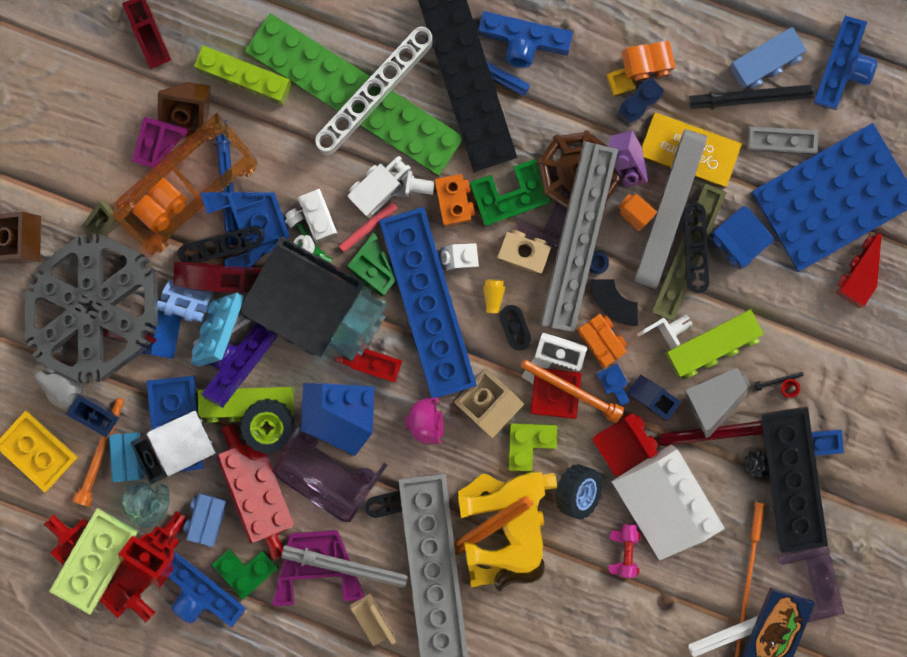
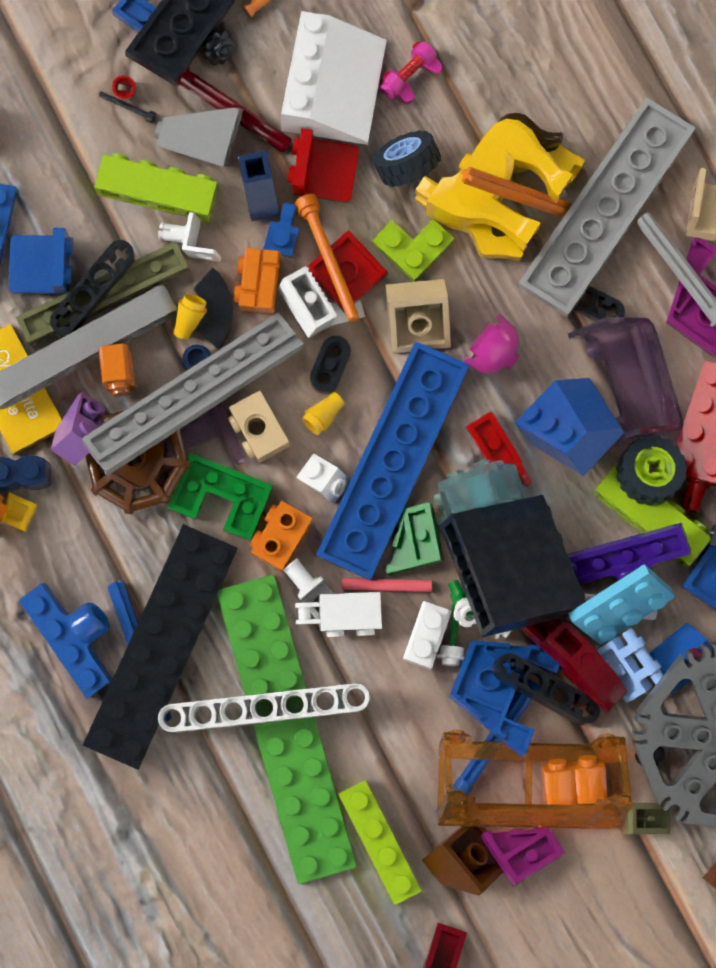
camera: 140 degrees left, 5 degrees down
(625, 284) = (189, 314): none -> yellow cone

